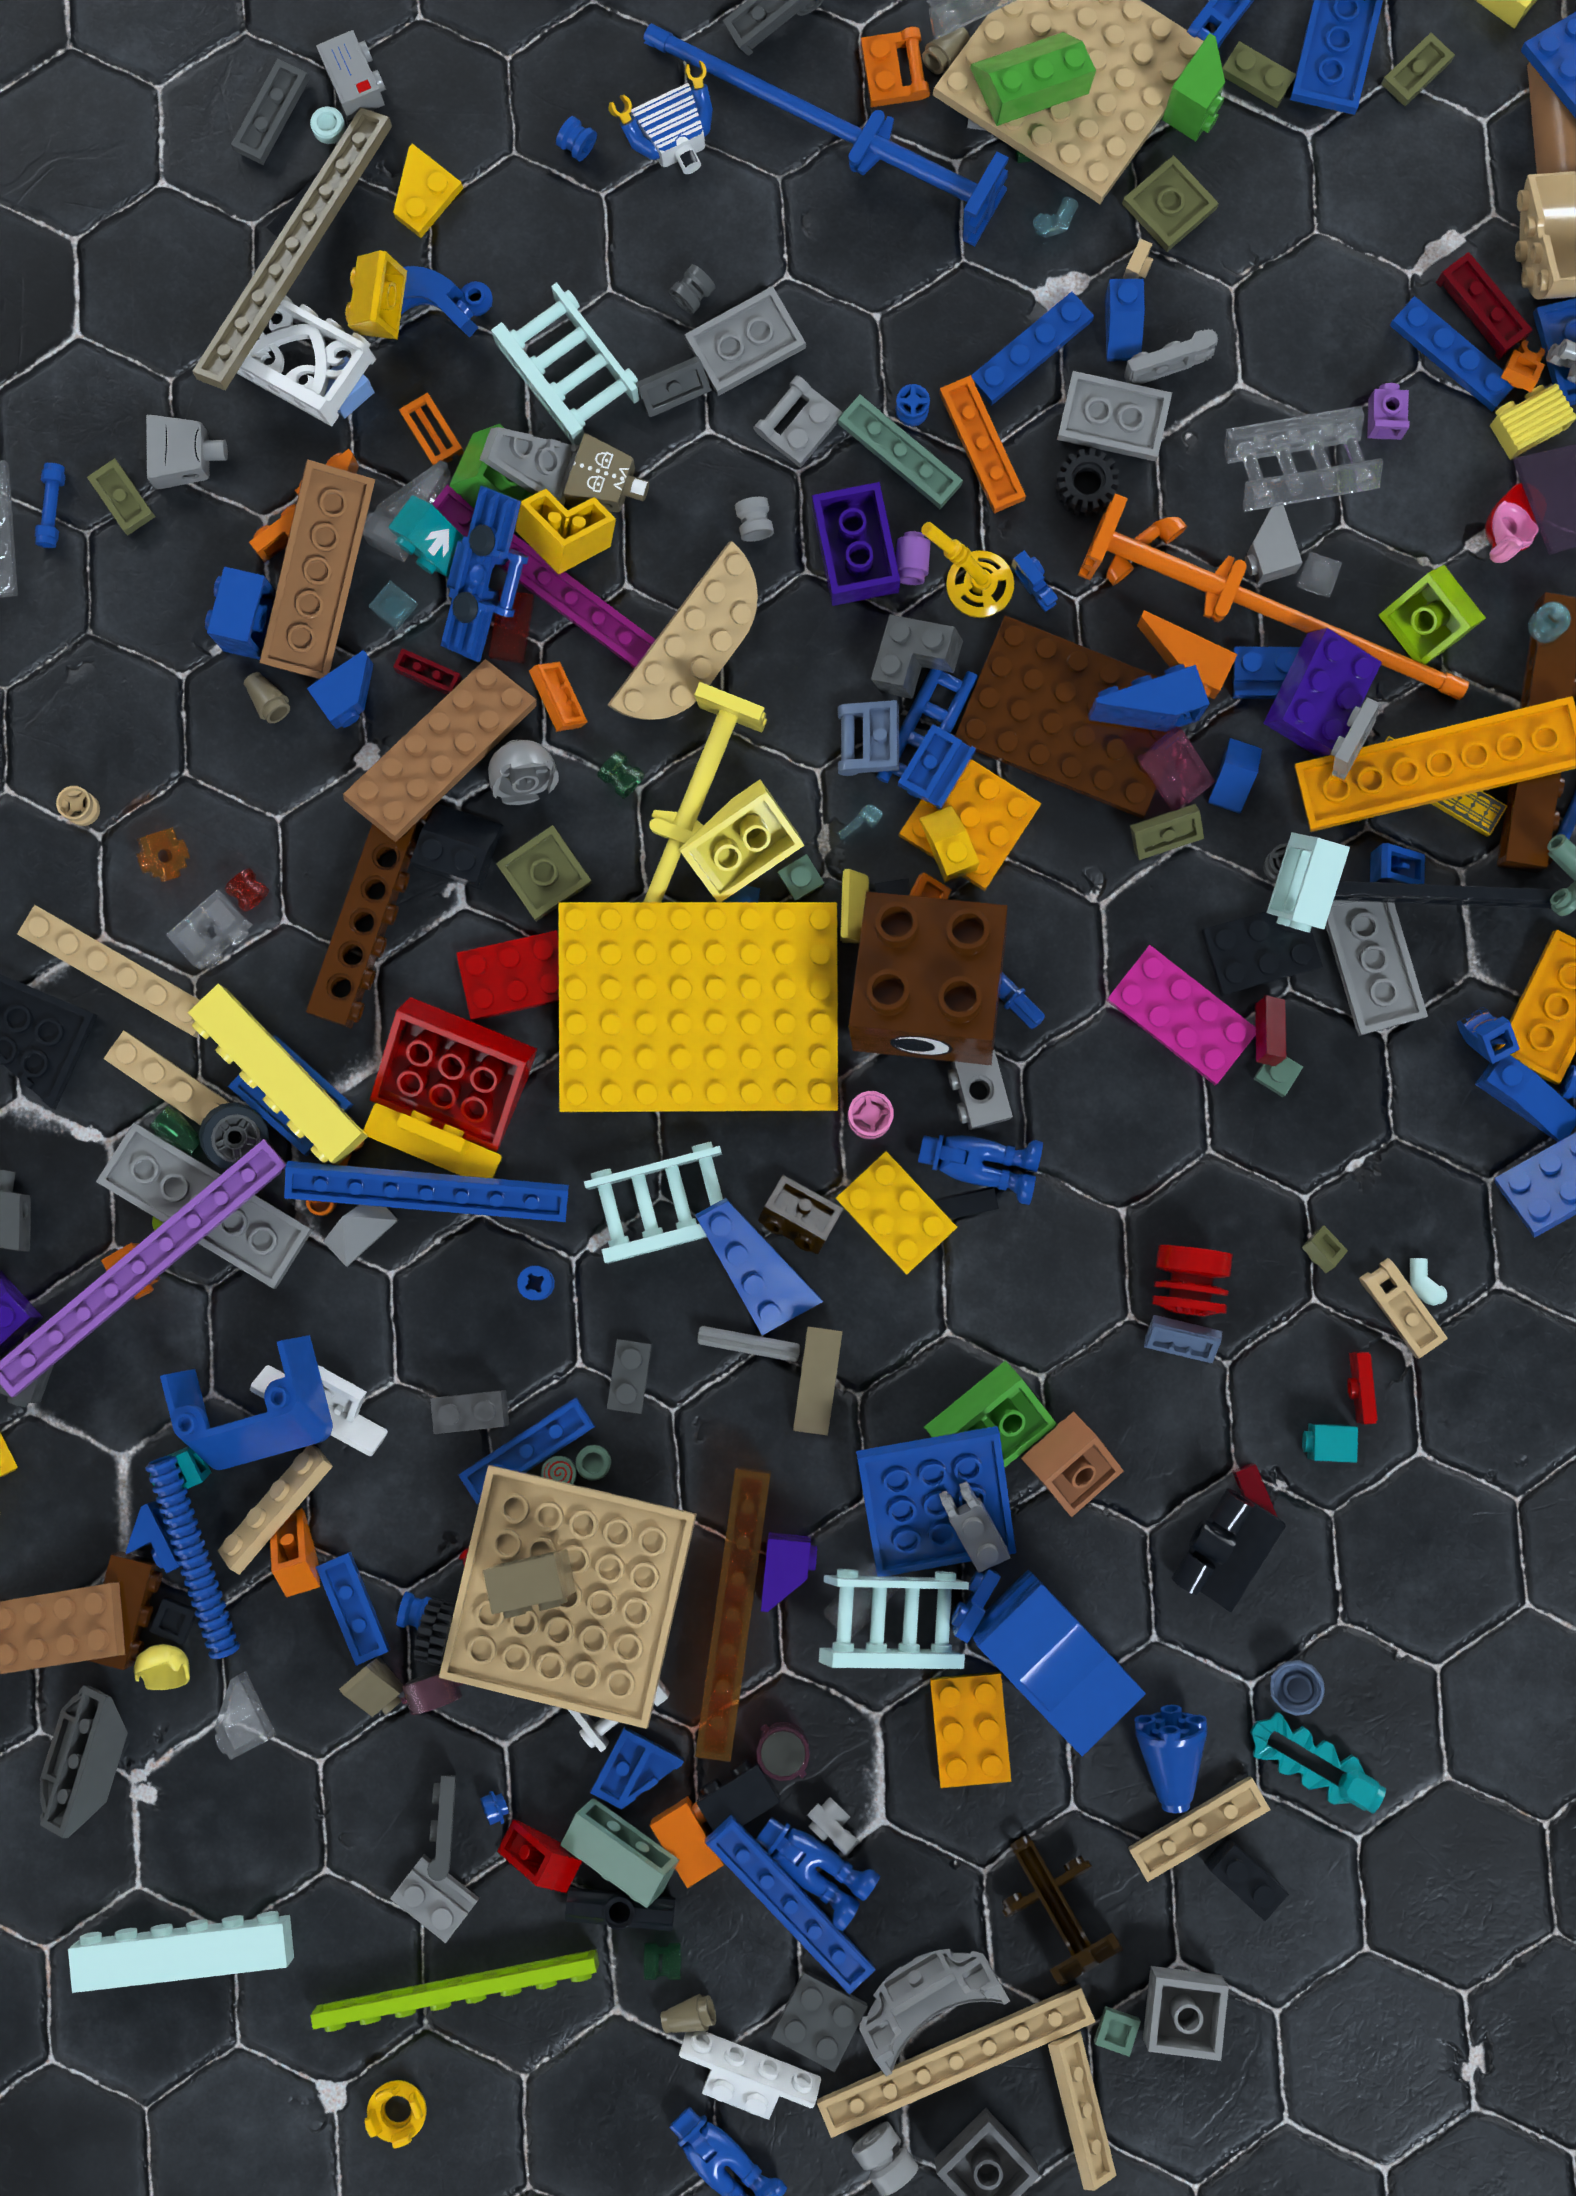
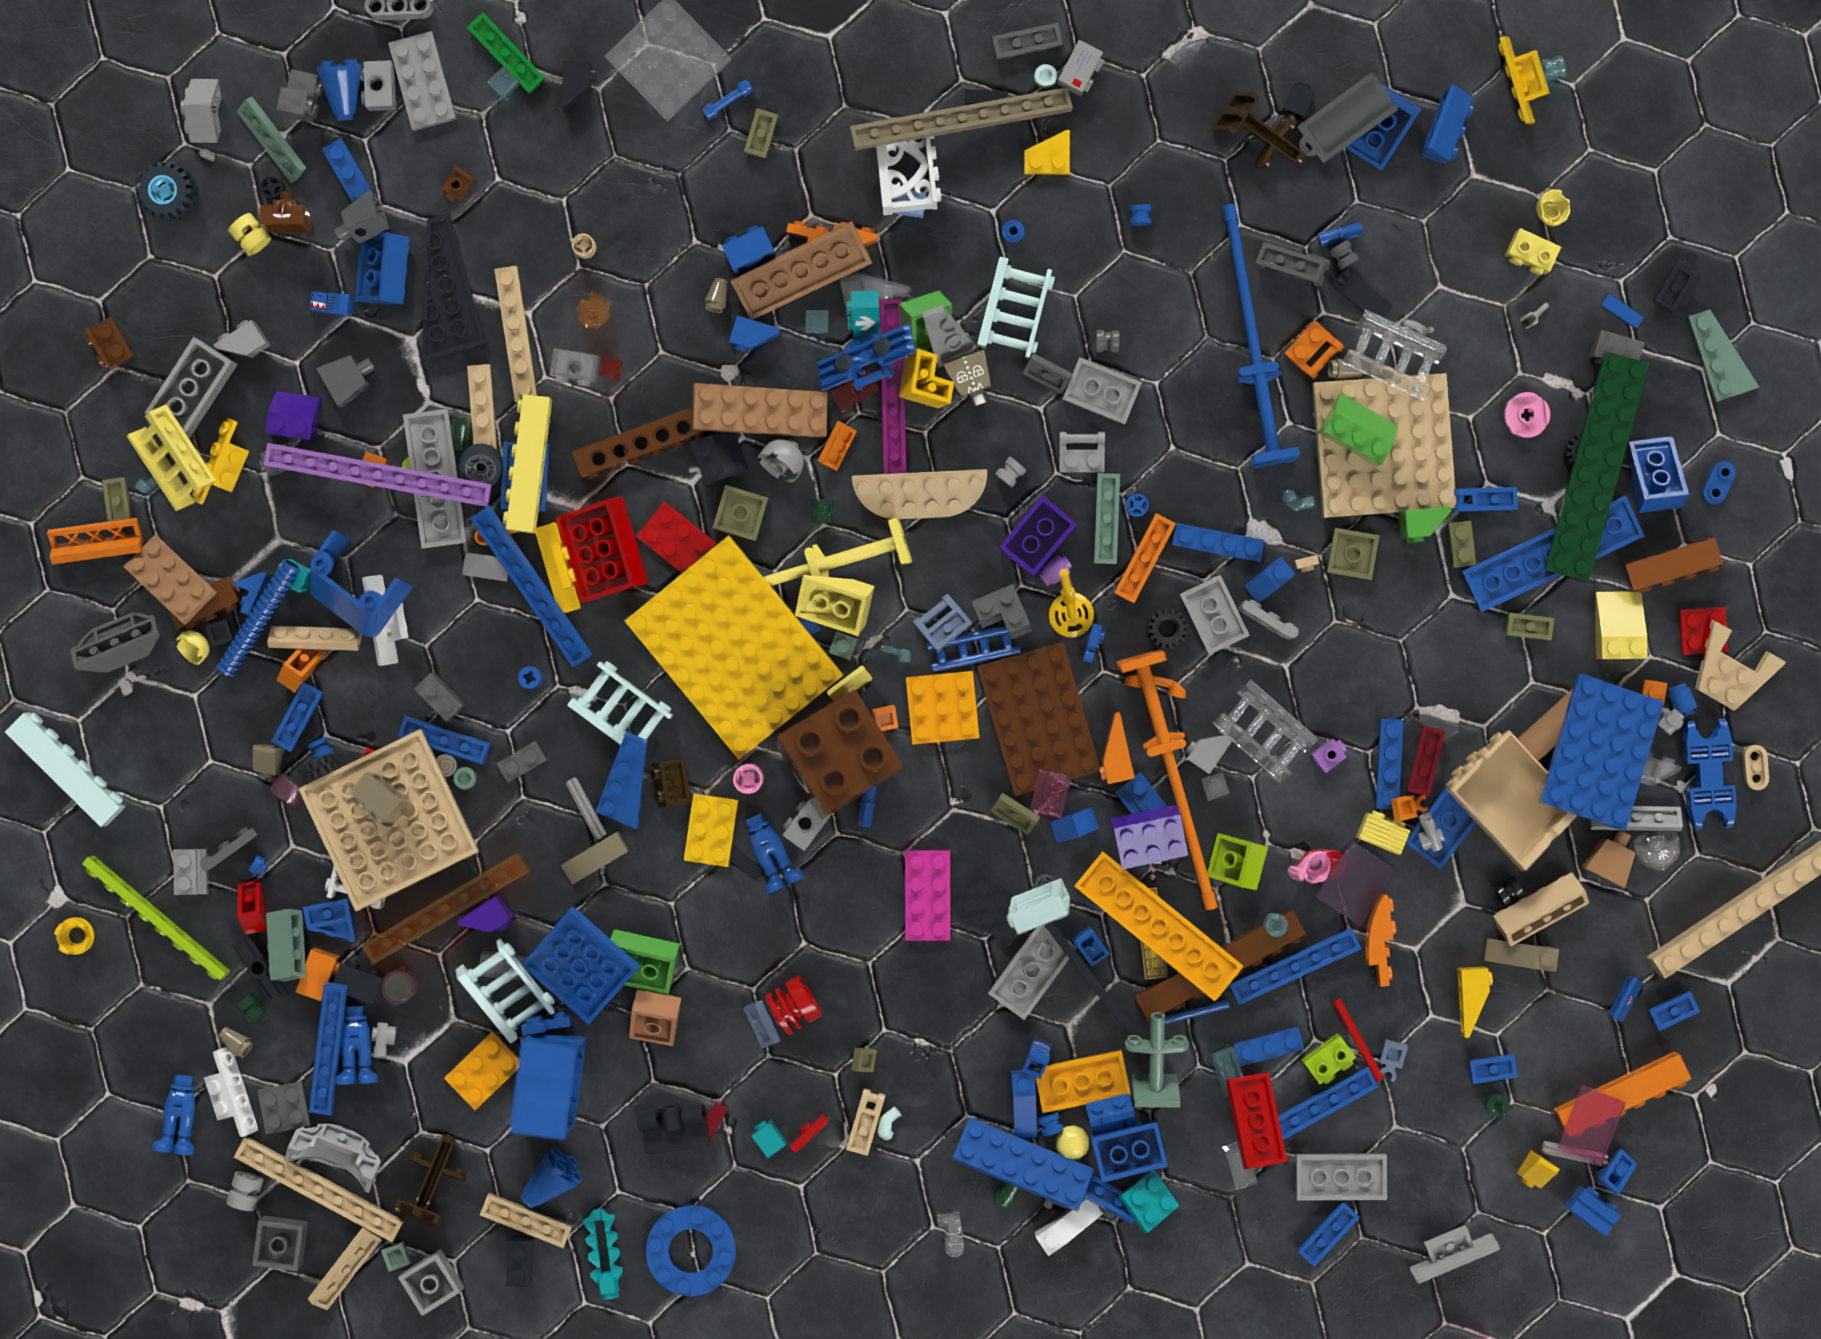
camera: 45 degrees right, 5 degrees up
(180, 451) = (809, 145): light grey torso -> none
(242, 1719) = (199, 707): clear slope -> none
(376, 295) = (966, 186): yellow slope -> none
(426, 672) = (796, 368): dark red piece -> none
(434, 289) = (981, 188): blue arch -> none
(445, 454) = (918, 283): orange tile -> none
(671, 124) = (1186, 259): torso -> none
(936, 766) = (953, 670): blue plate -> none
(949, 843) = (918, 707): yellow slope -> none
(975, 1529) = (582, 995): light grey hinge -> none
(1154, 703) = (1075, 761): blue slope -> none
(1270, 1030) = (953, 946): dark red piece -> none
(1279, 1077) = (936, 966): sand green plate -> none
(1297, 1687) = (633, 1214): sand blue hair -> none
(1345, 1661) = (682, 1219): none -> blue plate
(1348, 748) = (1143, 870): light grey plate -> none

